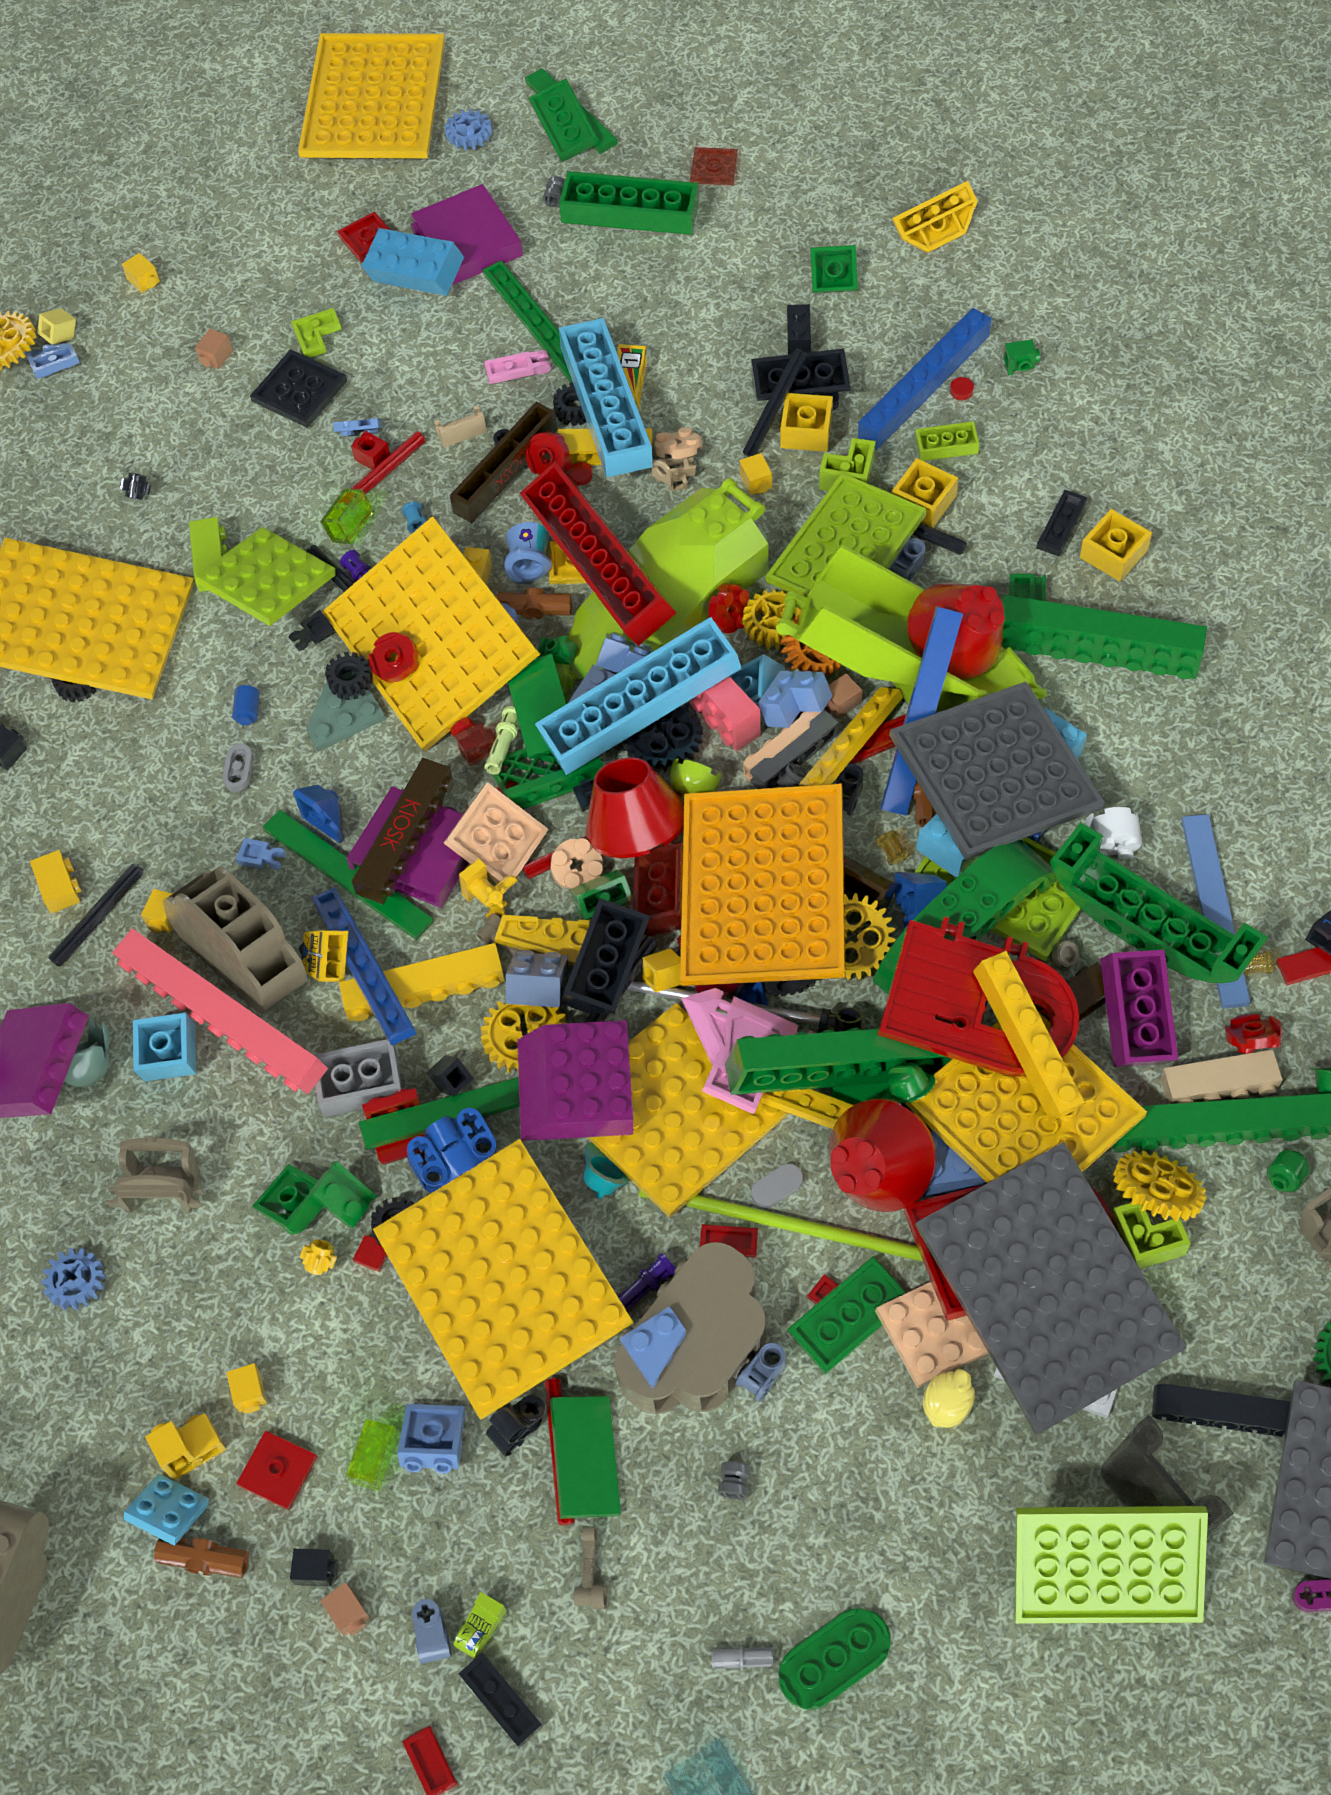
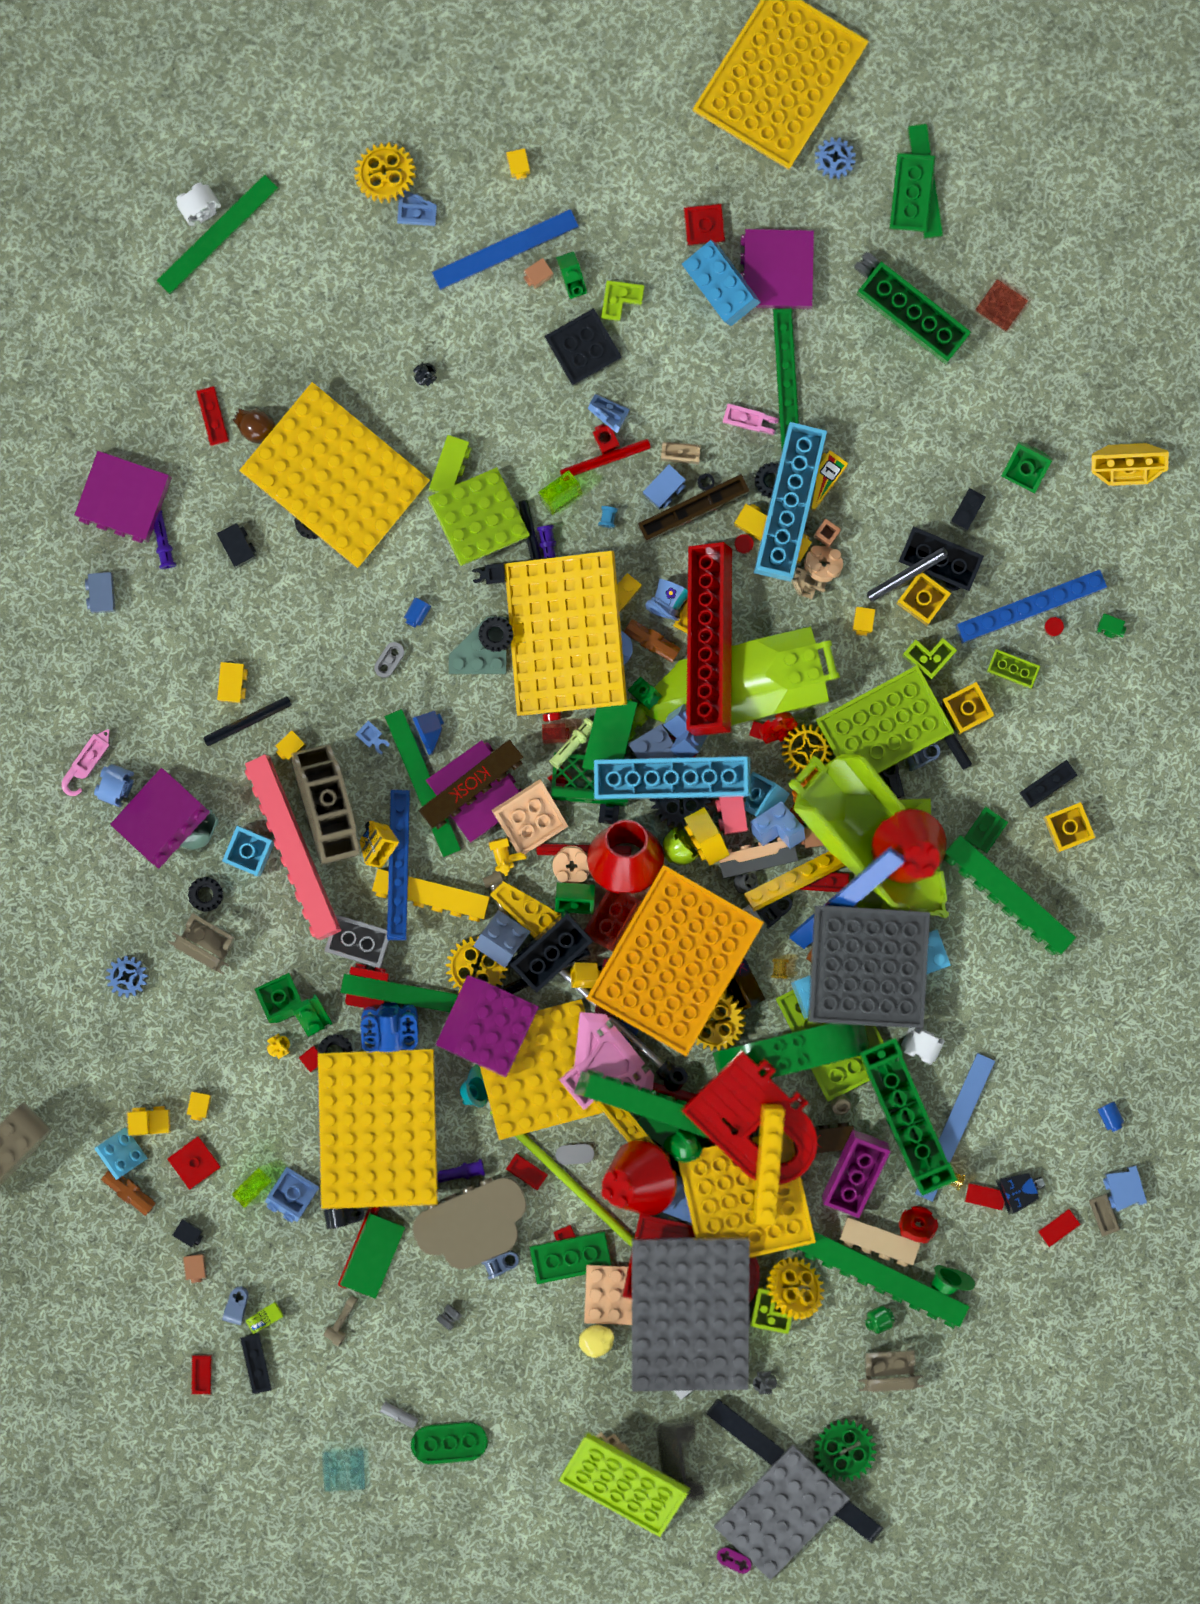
camera: 25 degrees right, 25 degrees up
(56, 326) = (432, 184): light yellow brick -> none
(132, 1113) = (217, 894): none -> black tyre
(166, 350) = (505, 249): none -> blue tile
(251, 334) = (571, 275): none -> green slope
(404, 664) = (523, 646): red plate -> none
(449, 1075) = (415, 972): black brick -> none
(460, 459) = (664, 487): none -> medium blue brick
(549, 442) = (726, 524): red plate -> none
(653, 1344) = (443, 1223): medium blue wing -> none
(664, 415) = (827, 533): none -> nougat brick
(717, 745) = (705, 837): none -> yellow brick
(916, 892) = (773, 1019): blue slope -> none
(1201, 1329) = (764, 1382): none -> dark grey gear

